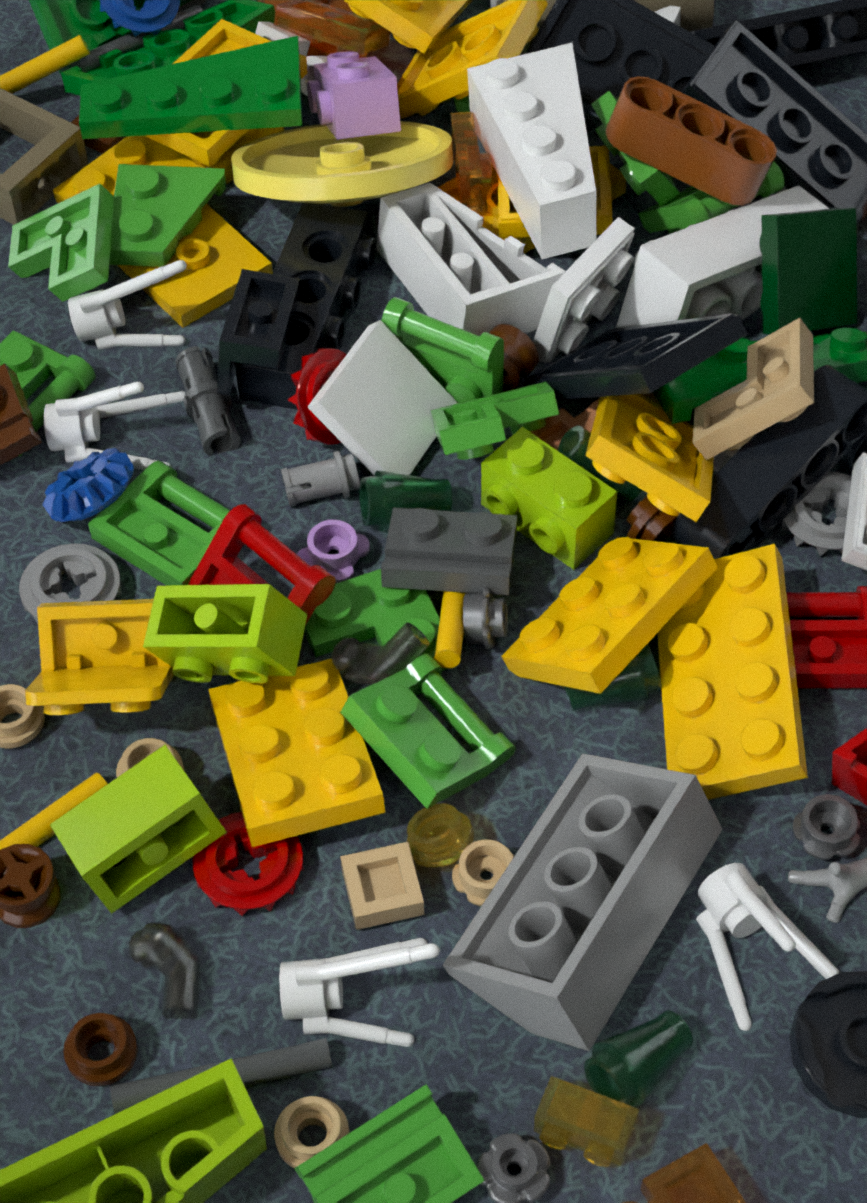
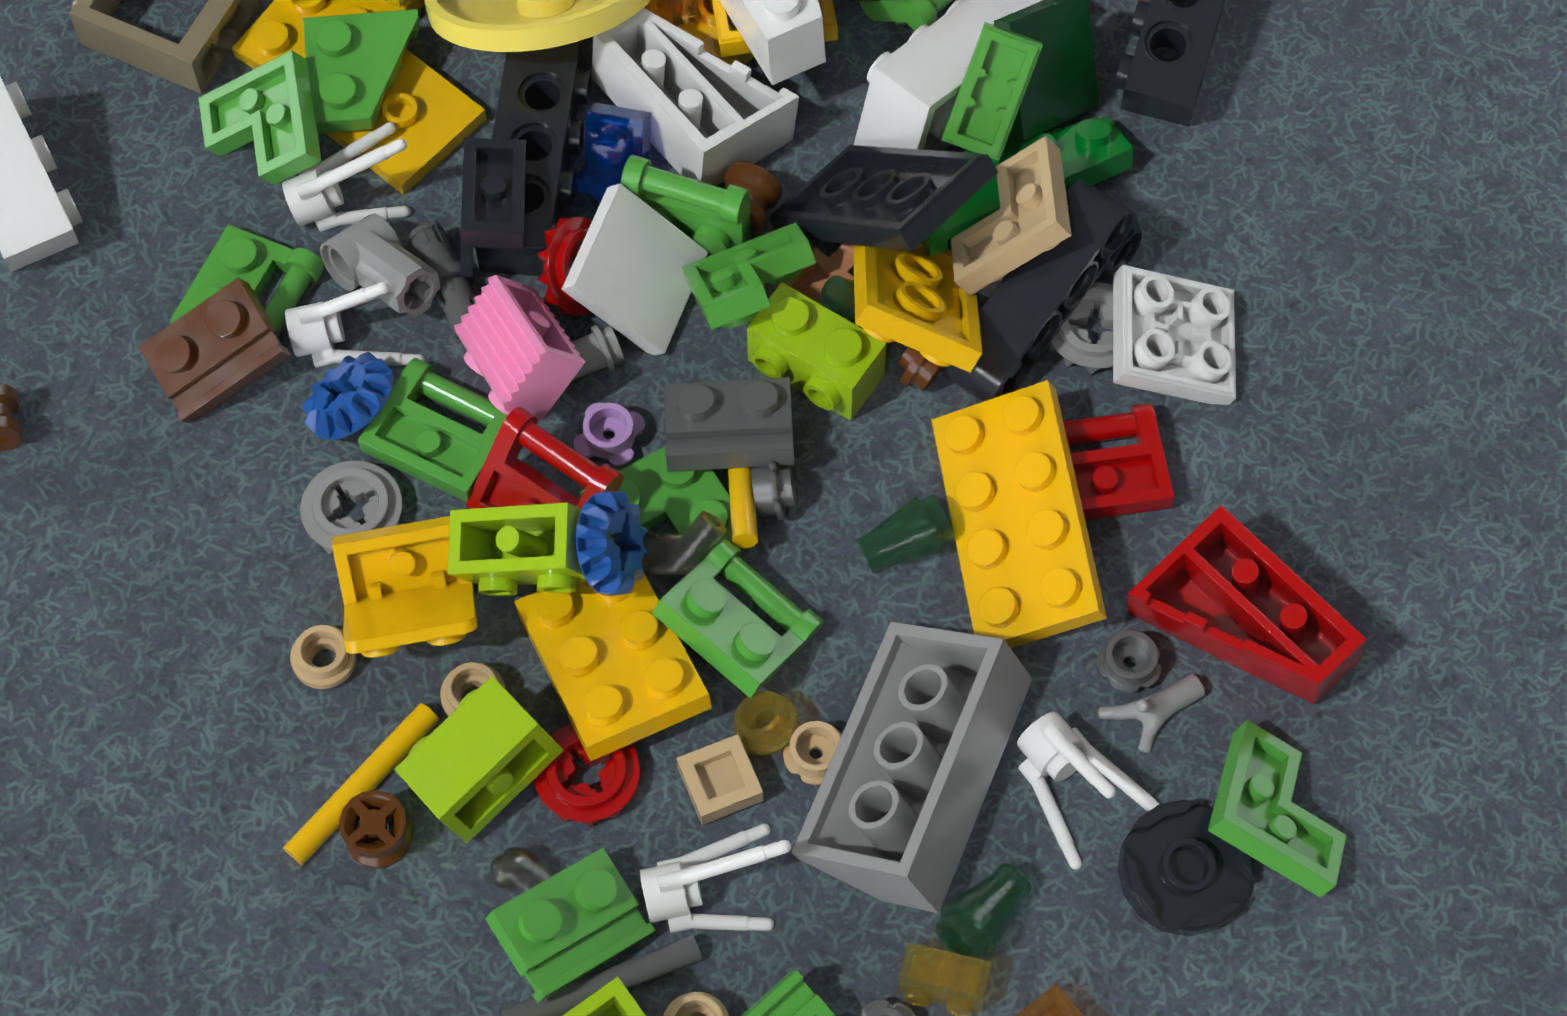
camera: 10 degrees left, 10 degrees up
(95, 1029) = (474, 958): reddish brown plate -> none
(143, 360) = (373, 254): none -> light grey piece
(197, 1006) = (569, 924): none -> bright green plate
(257, 457) = (518, 347): none -> bright pink brick
(299, 655) = (606, 565): none -> blue gear
(377, 287) = (610, 140): none -> clear blue bracket
(395, 490) = (668, 364): clear green cone -> none
(584, 292) = (822, 116): white tile -> none
(609, 613) = (895, 470): yellow plate -> none
(755, 273) = (991, 91): none -> bright green plate

